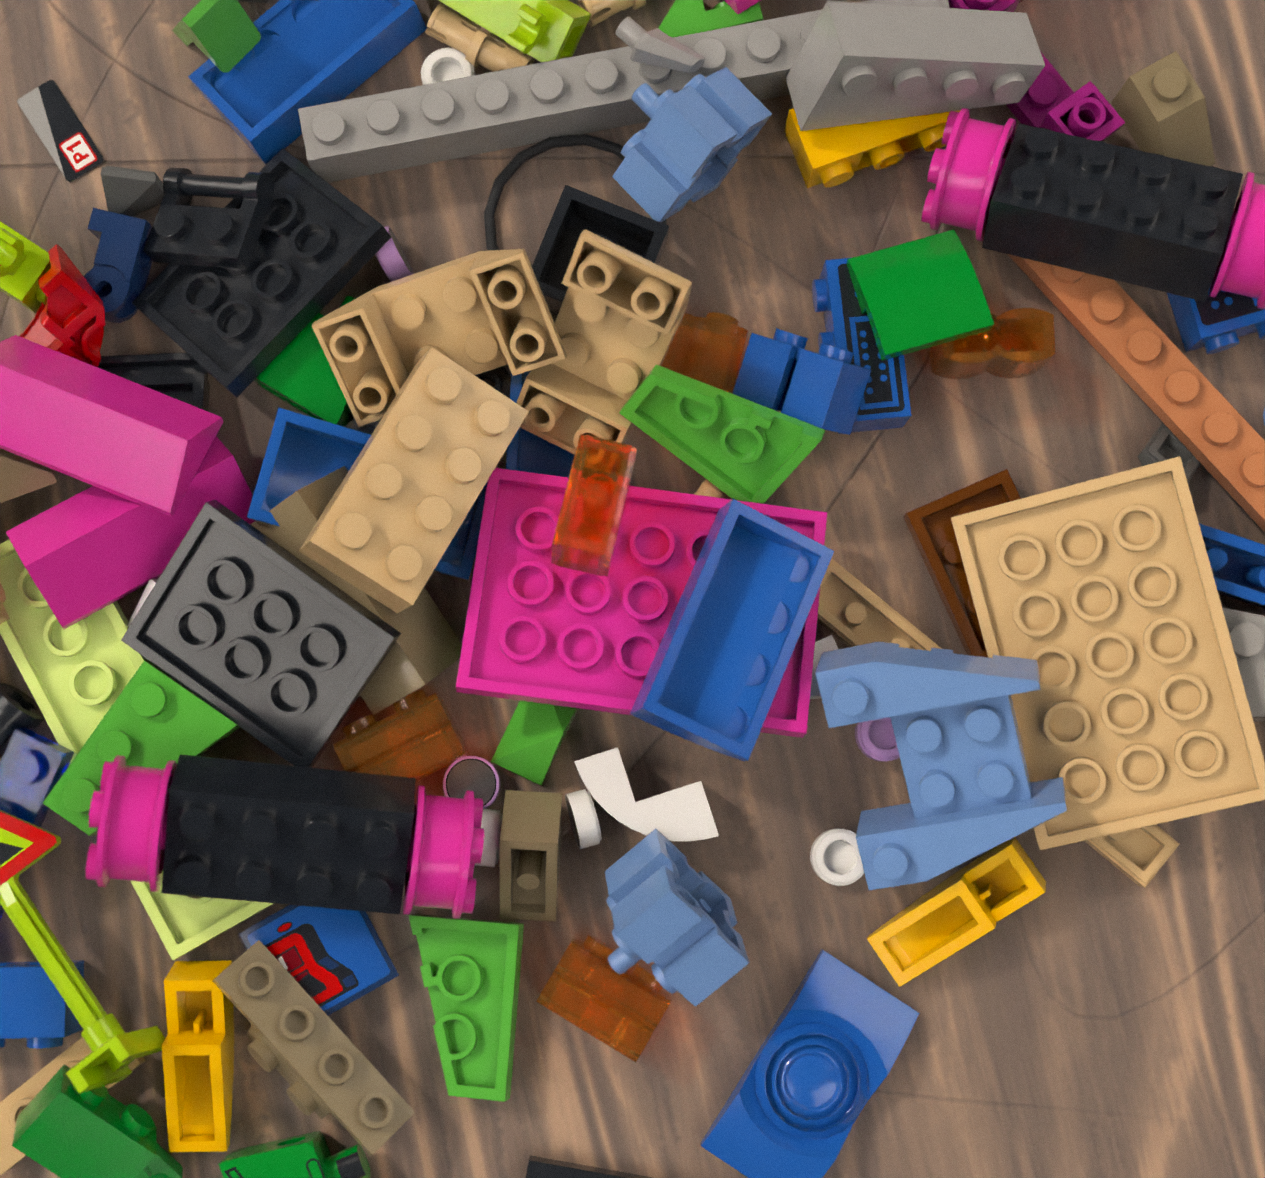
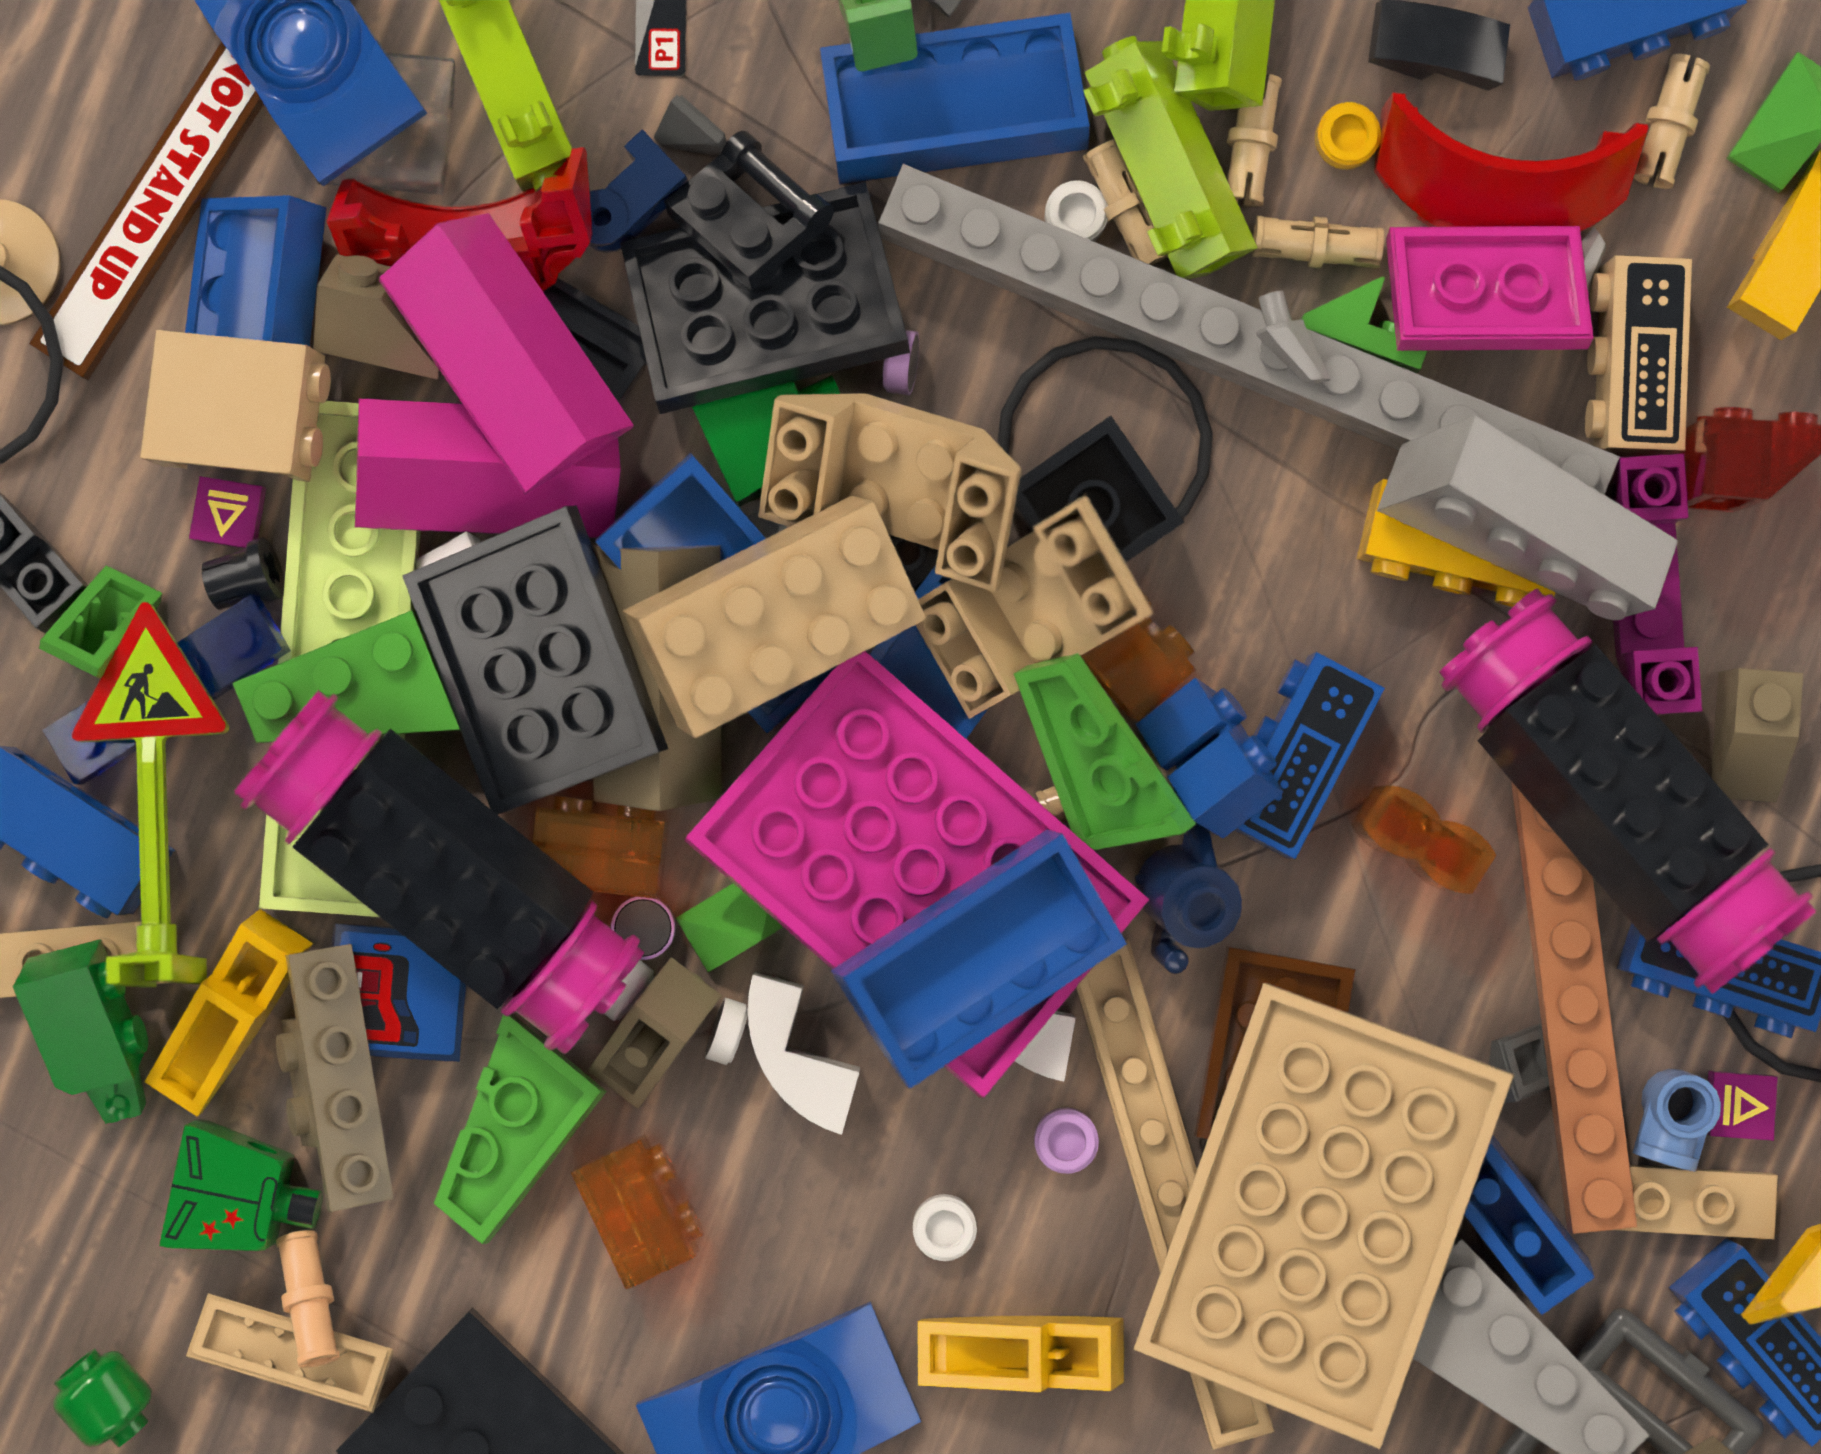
camera: 35 degrees right, 5 degrees up
(593, 505) = (926, 753): clear orange brick -> none
(672, 918) = (745, 1184): medium blue brick -> none
(688, 141) = (1259, 448): medium blue brick -> none
(855, 493) = (1188, 898): none -> dark blue piece
(920, 294) = (1381, 748): green slope -> none
(955, 752) = (1113, 1206): medium blue wedge -> none

